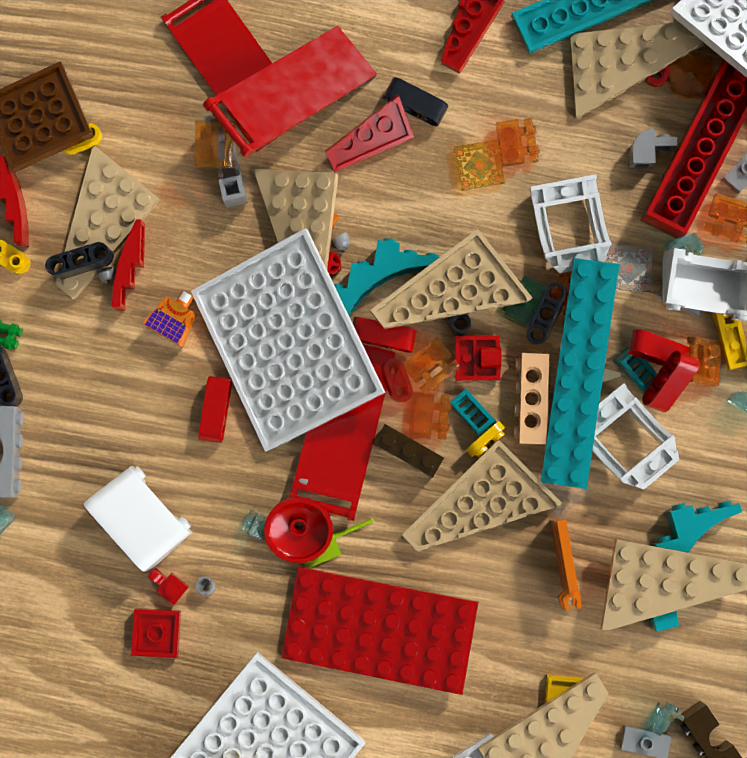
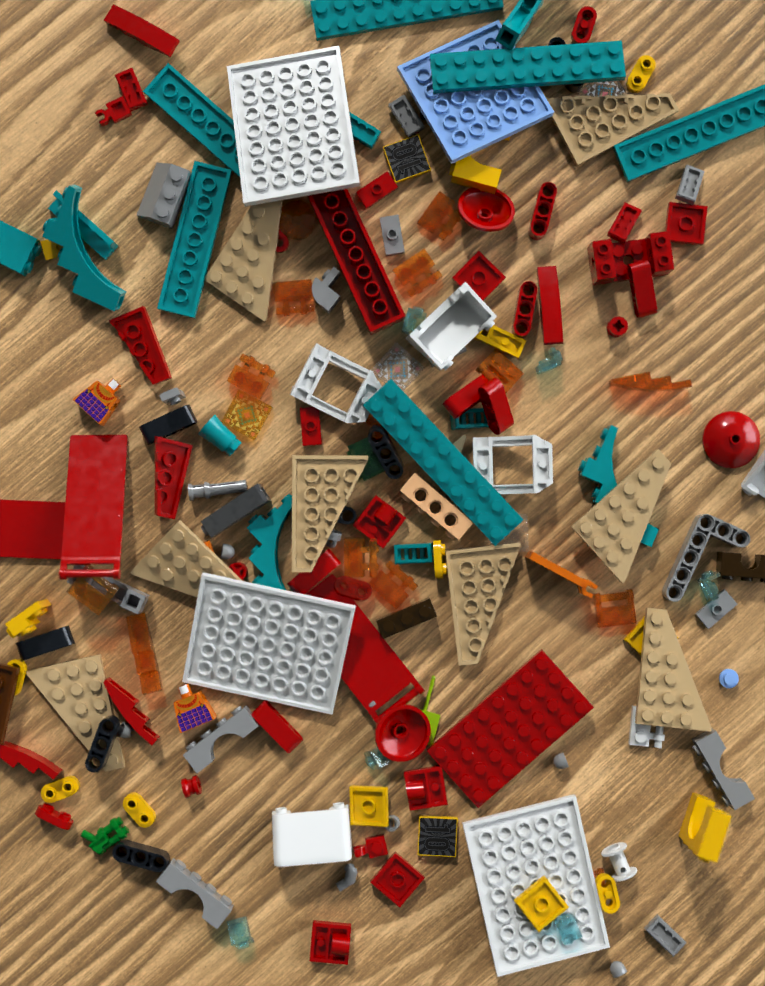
camera: 55 degrees left, 5 degrees up
(43, 342) = (141, 808): none -> yellow plate
(49, 615) = (330, 942): none -> red plate
(100, 372) = (191, 786): none -> red wheel
(124, 586) = (350, 877): none -> light grey arm
(133, 142) = (45, 643): none -> black beam
(138, 359) = (201, 753): none -> light grey arch
(141, 108) = (27, 620): none -> yellow plate
(190, 238) = (144, 653): none -> clear orange slope
(205, 552) = (369, 806): none -> yellow tile
(225, 639) = (437, 836): none -> tile
(262, 592) = (425, 787): none -> red plate
(384, 181) = (207, 490): none -> light grey pin
(385, 703) = (560, 761): none -> light grey hinge
(386, 219) = (235, 510): none -> flat silver slope
(389, 25) = (99, 400): none -> torso
(432, 327) = (335, 536): none -> light grey tile
(441, 154) = (220, 436): none -> teal plant
(445, 83) = (172, 396): none -> light grey plate
(514, 229) = (310, 426): none -> red plate
(564, 649) = (615, 615): none -> clear orange plate
(623, 121) = (293, 291): none -> clear orange plate
(685, 679) = (696, 551): none -> light grey beam

